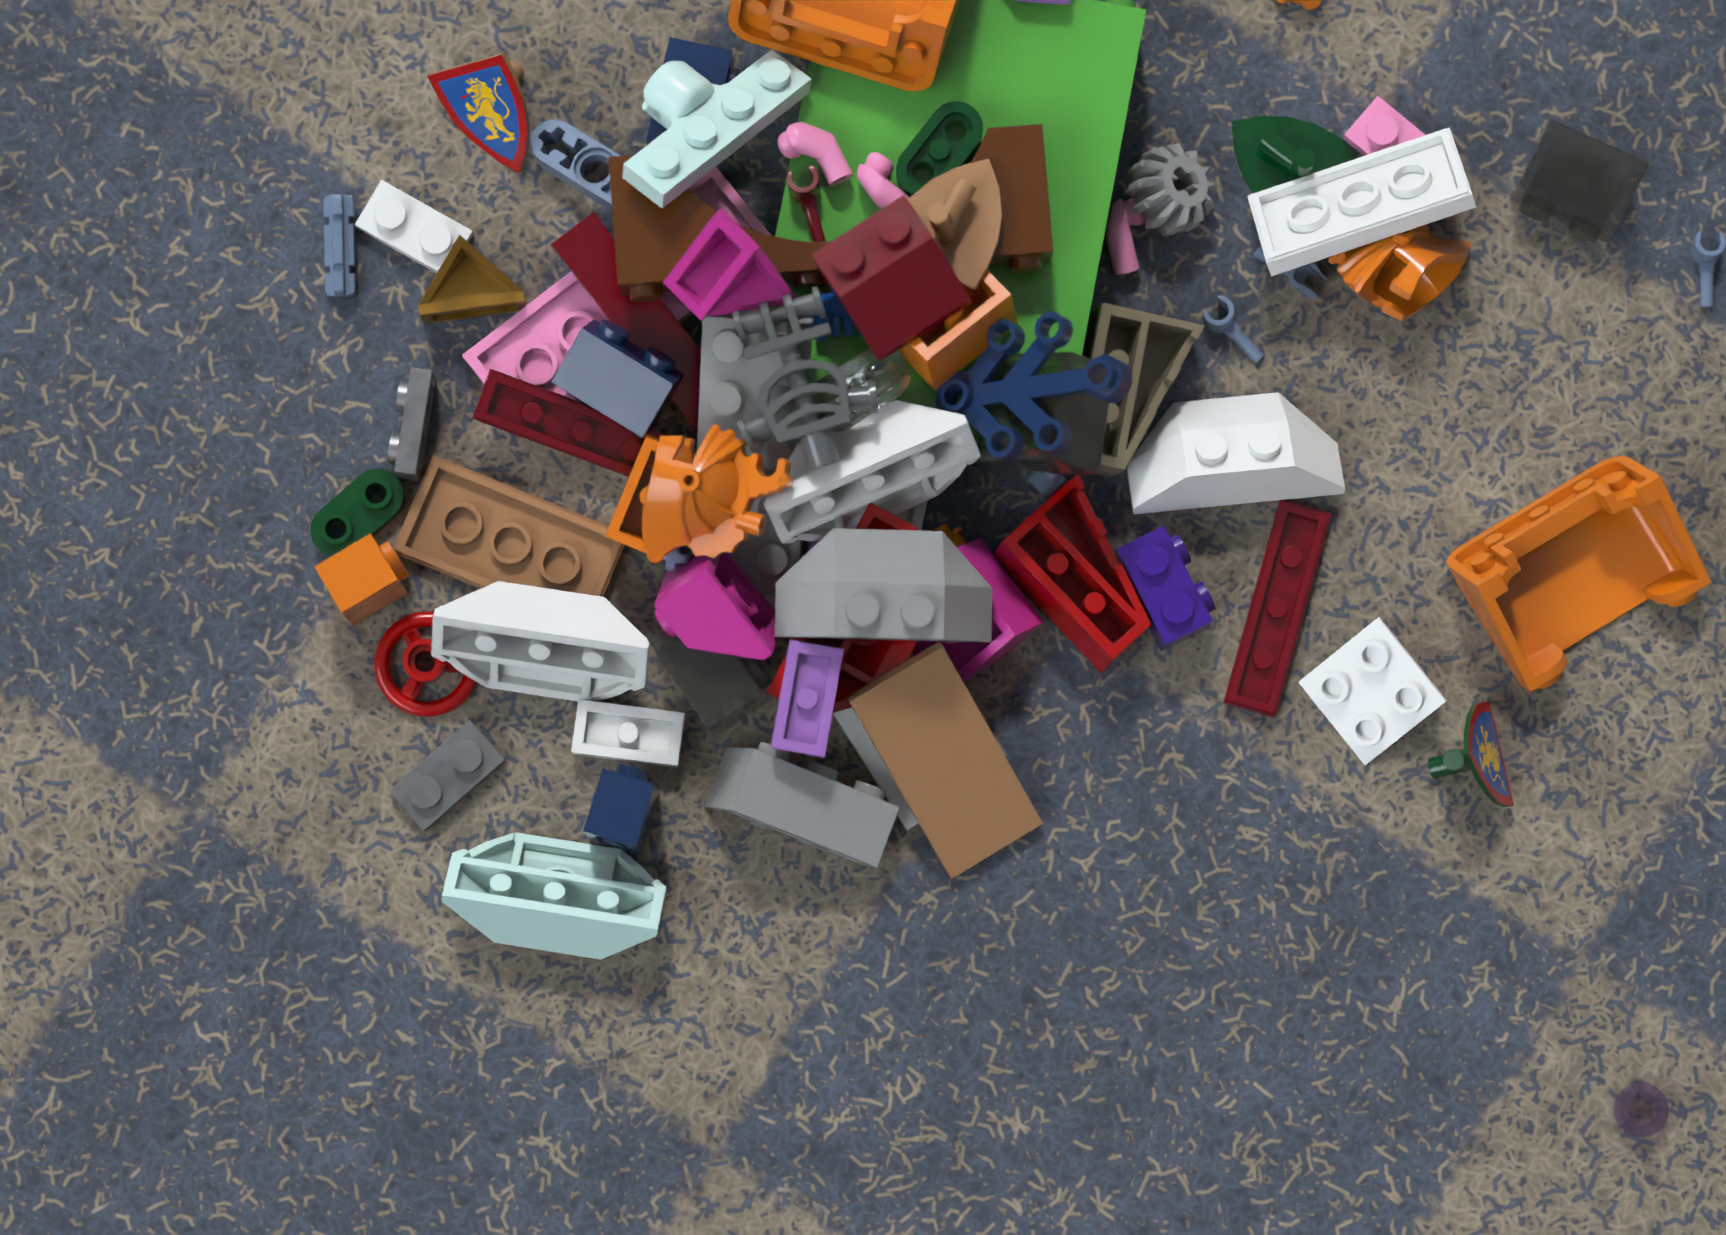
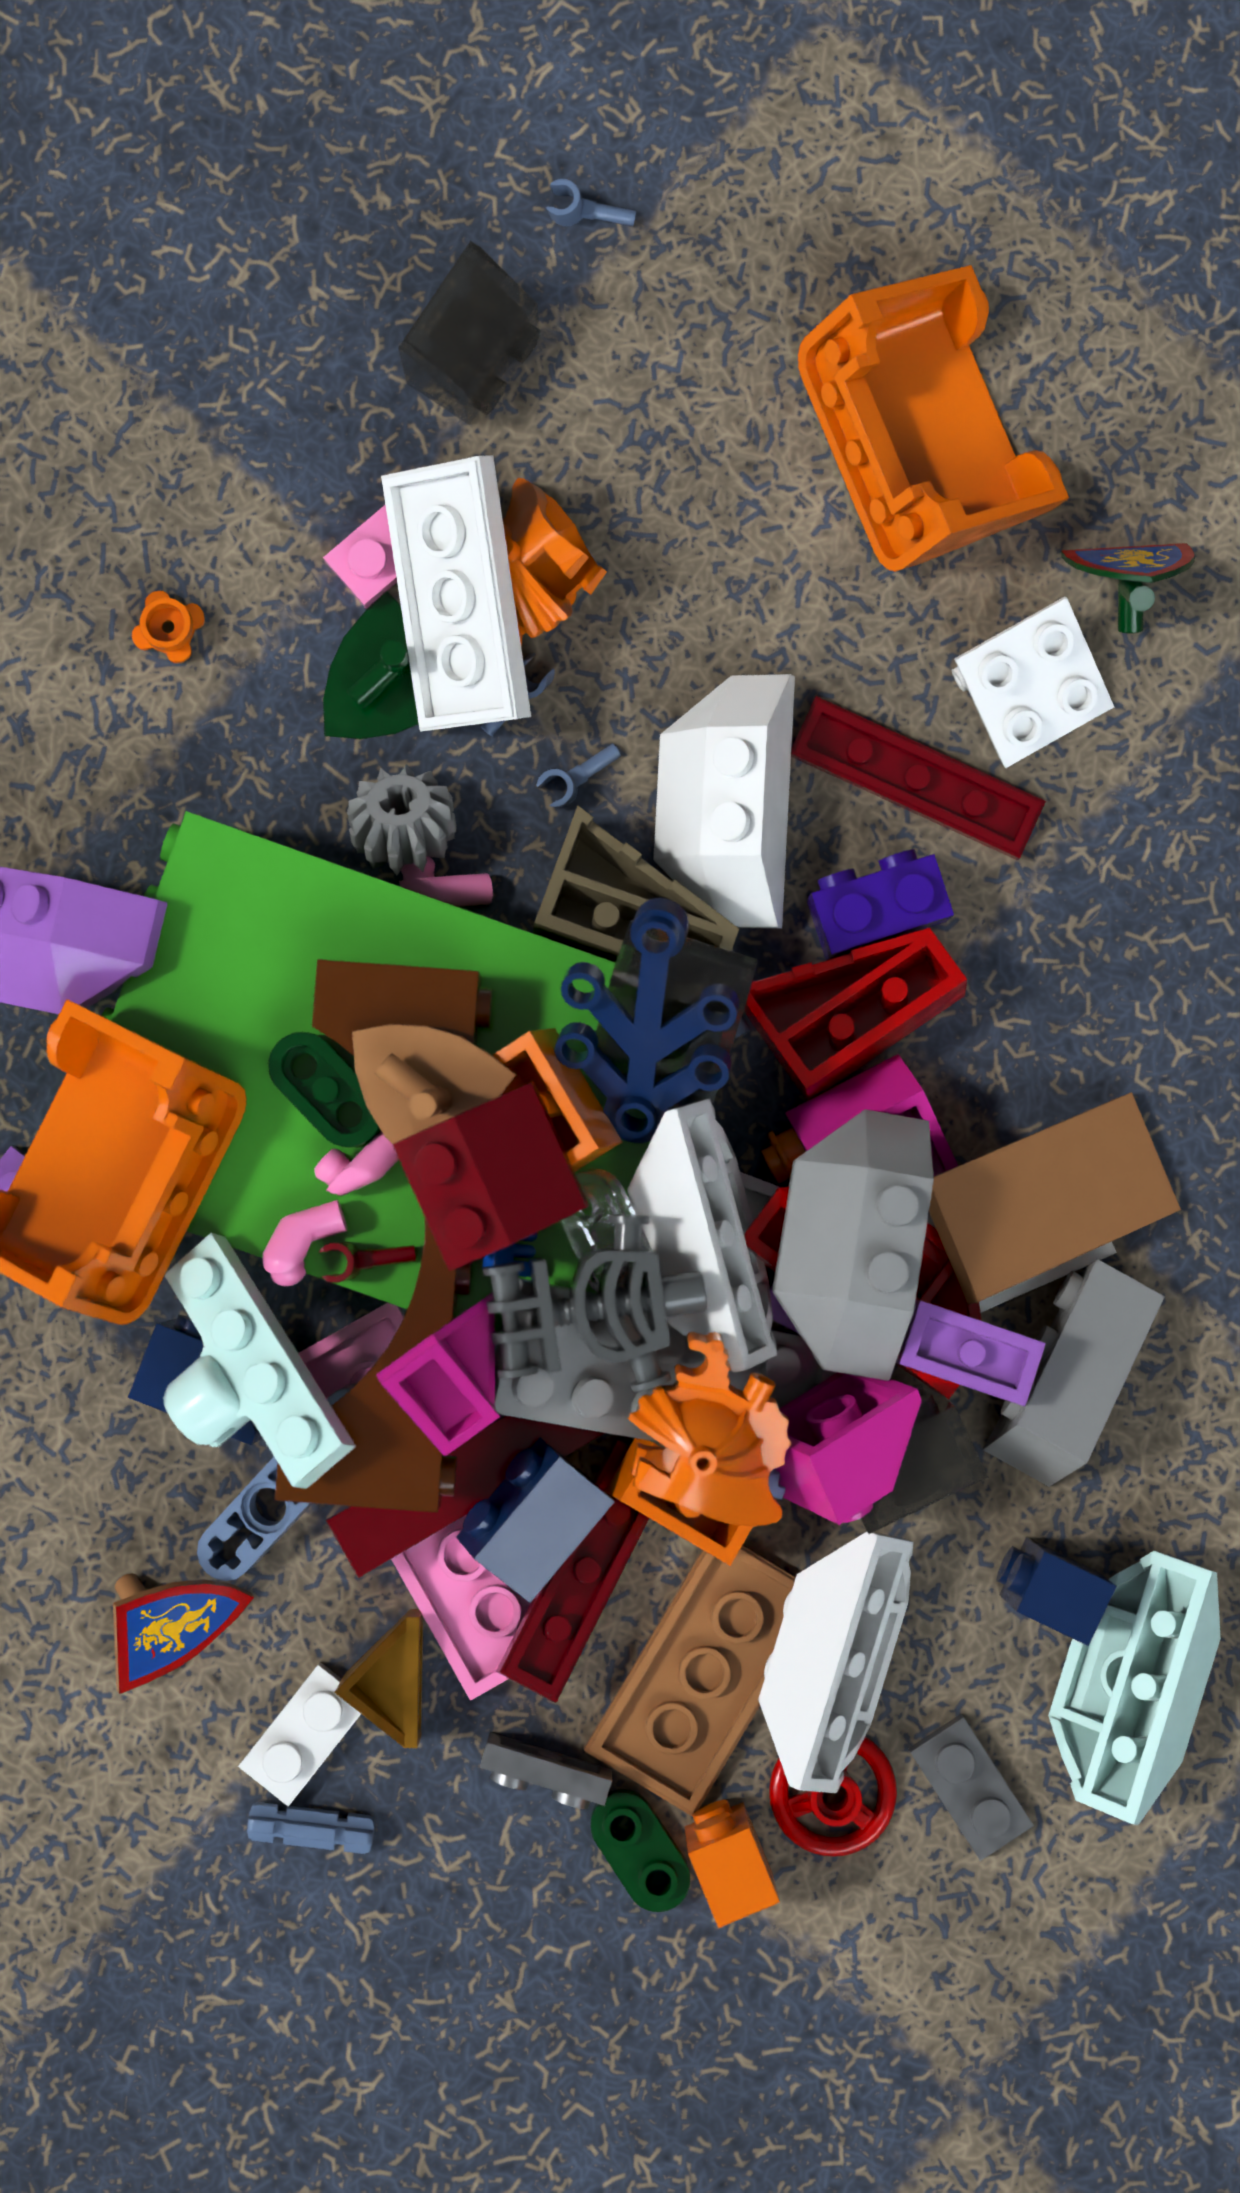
camera: 85 degrees left, 5 degrees up
(628, 733) = (954, 1566): white plate -> none

